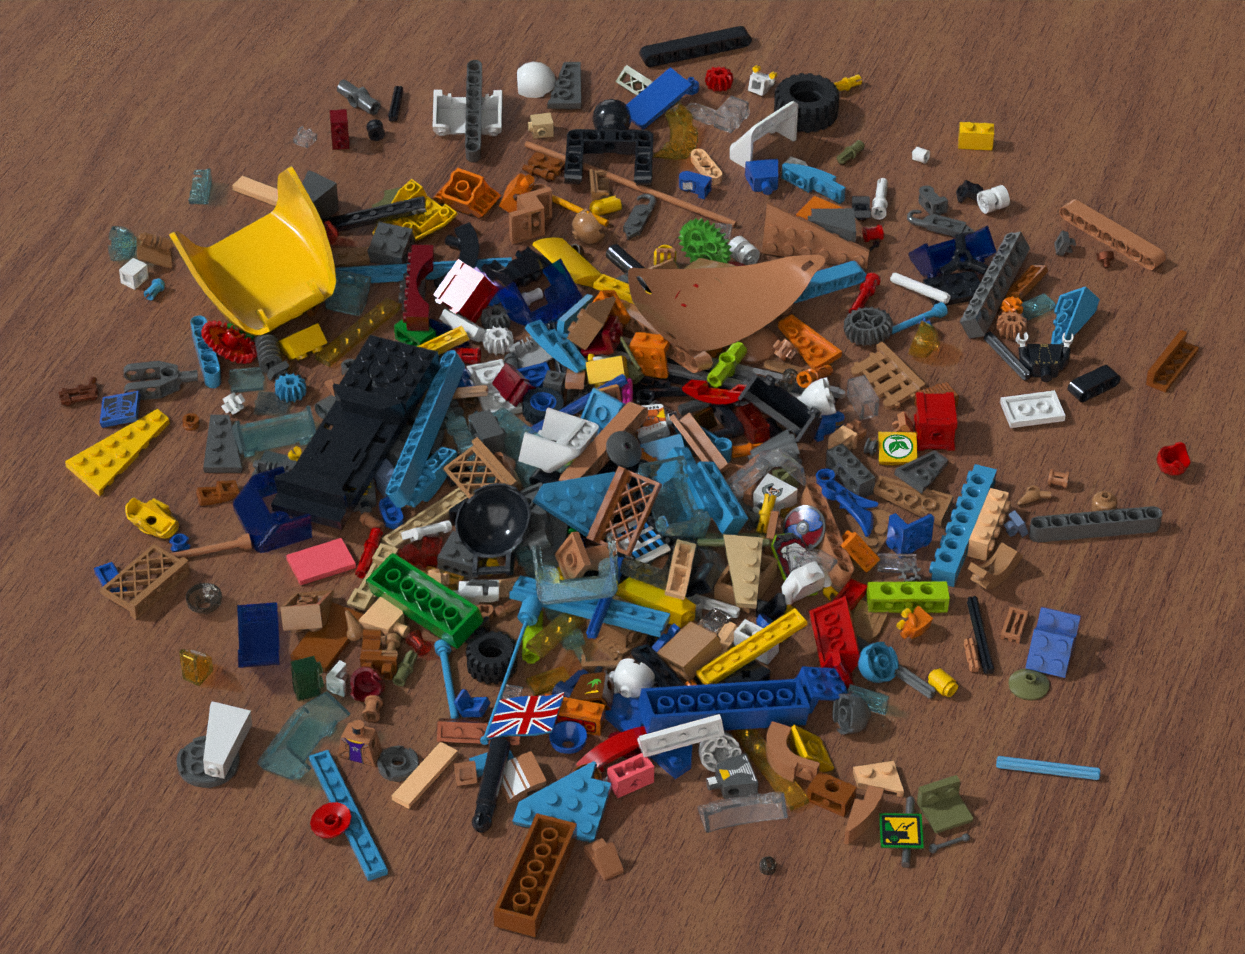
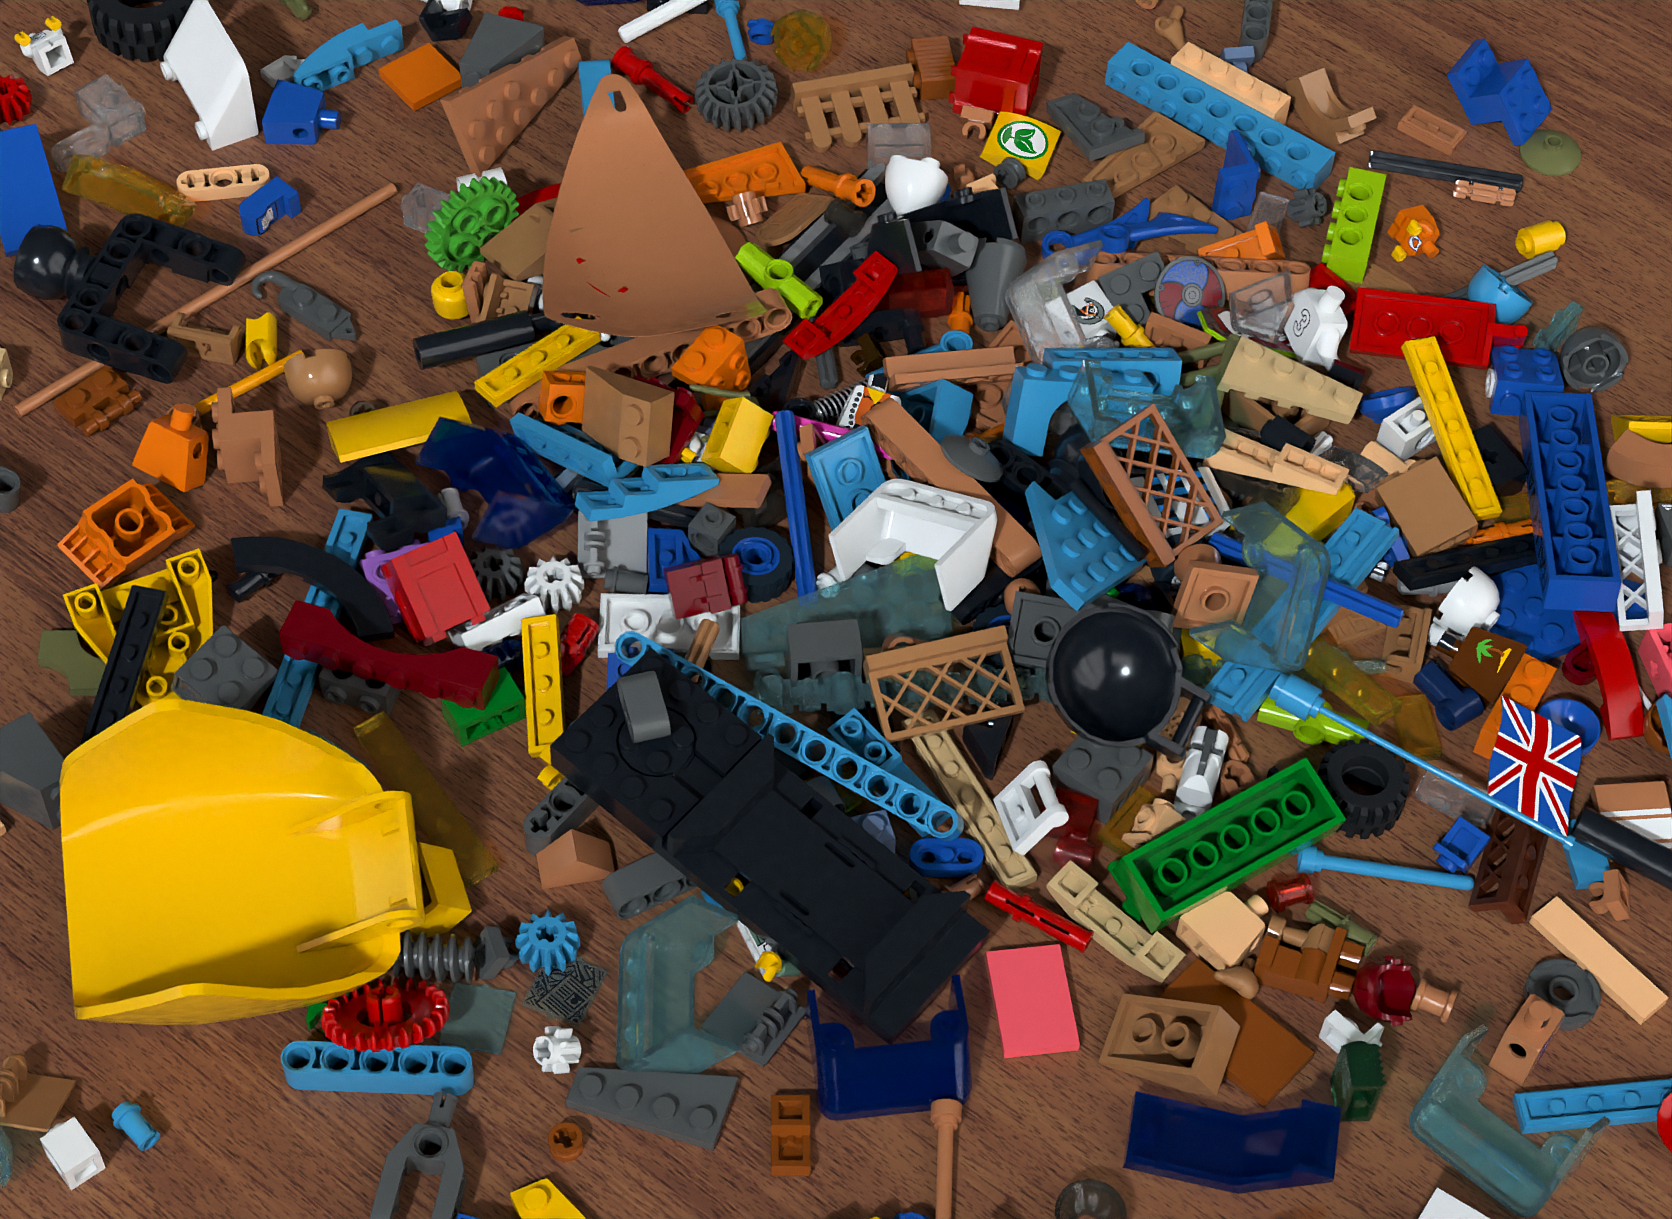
camera: 75 degrees left, 10 degrees up
(396, 352) = (643, 706): none -> dark grey beam
(776, 415) = (944, 246): none -> dark grey torso
(794, 499) = (1129, 283): none -> dark grey plate

